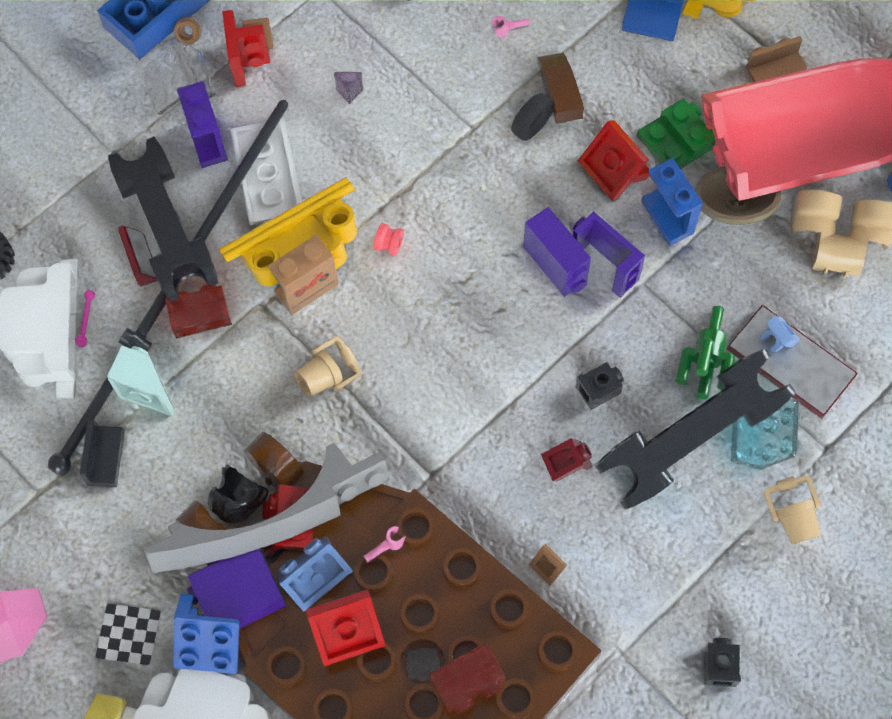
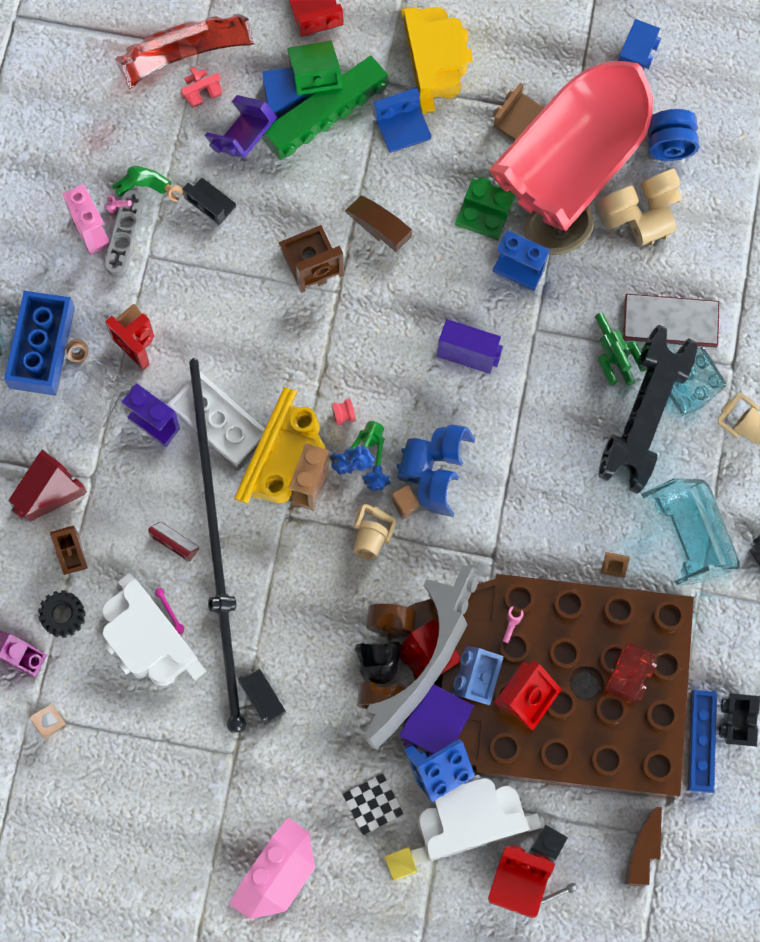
camera: 40 degrees left, 5 degrees up
(38, 200) = (69, 549): none -> reddish brown slope
(59, 131) = (44, 488): none -> dark red slope
(138, 381) = (253, 626): light aqua slope -> none
(178, 257) = (209, 521): black piece -> none
(199, 311) = (249, 551): clear red brick -> none
(349, 84) = (228, 317): clear purple slope -> none
(358, 286) = (361, 459): none -> blue plant
(381, 360) = (405, 502): none -> medium nougat slope
(424, 331) = (419, 460): none -> blue piece
(467, 79) = (318, 268): none -> reddish brown bracket
(506, 26) = (307, 198): bright pink hand -> none
(532, 117) = (379, 258): black tyre -> none
(567, 459) = (576, 485): dark red bracket -> none
(596, 393) = (561, 427): black brick -> none
(614, 160) = (458, 255): red bracket -> none
(614, 247) = (505, 318): dark purple panel -> none
(666, 585) = (698, 527): none -> clear light blue windscreen
(782, 332) = (655, 305): light blue tile -> none

